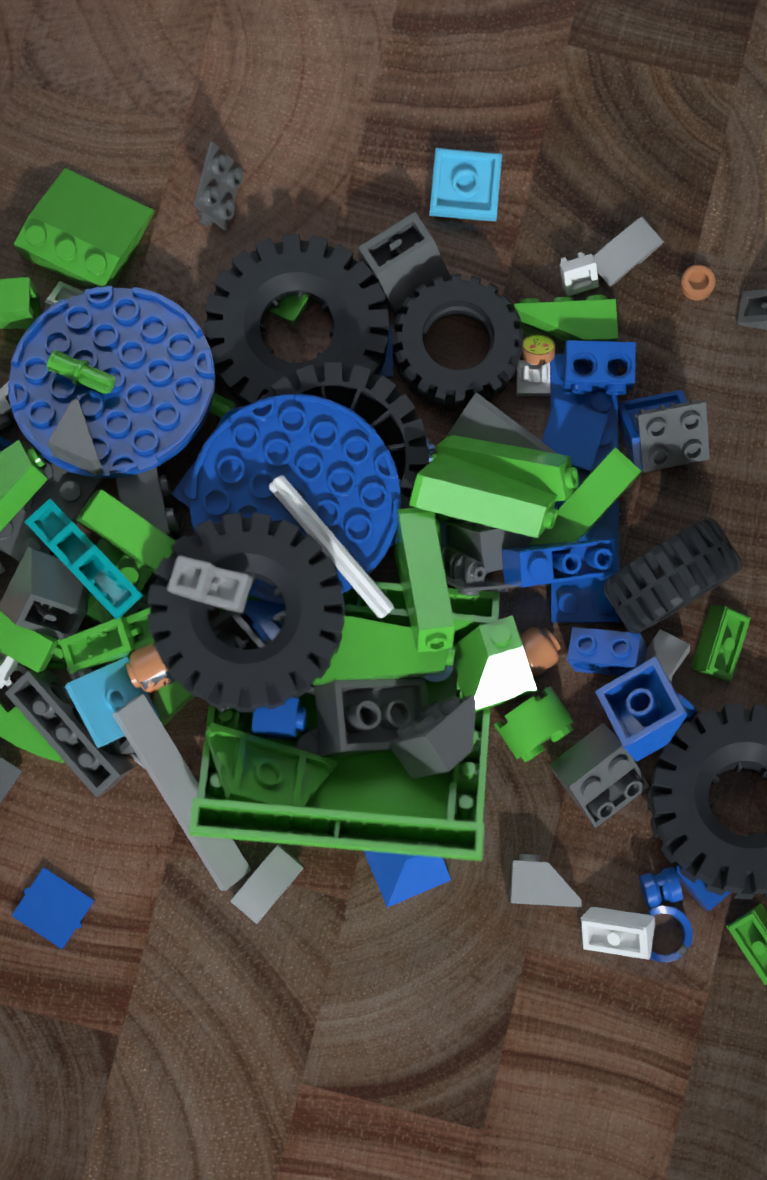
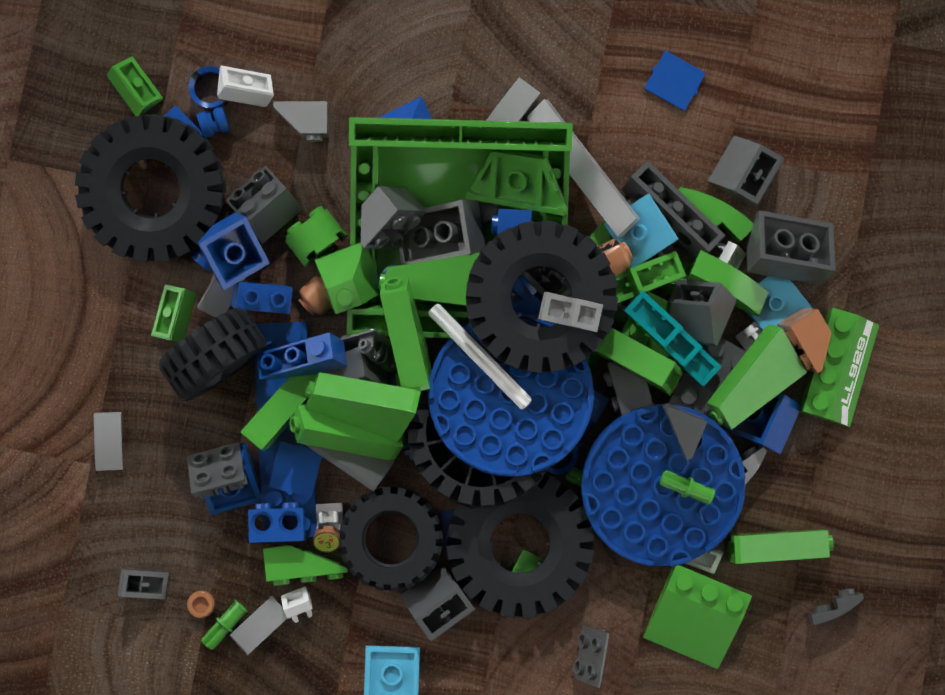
camera: 175 degrees right, 5 degrees up
(669, 254) = (224, 625): none -> bright green axle

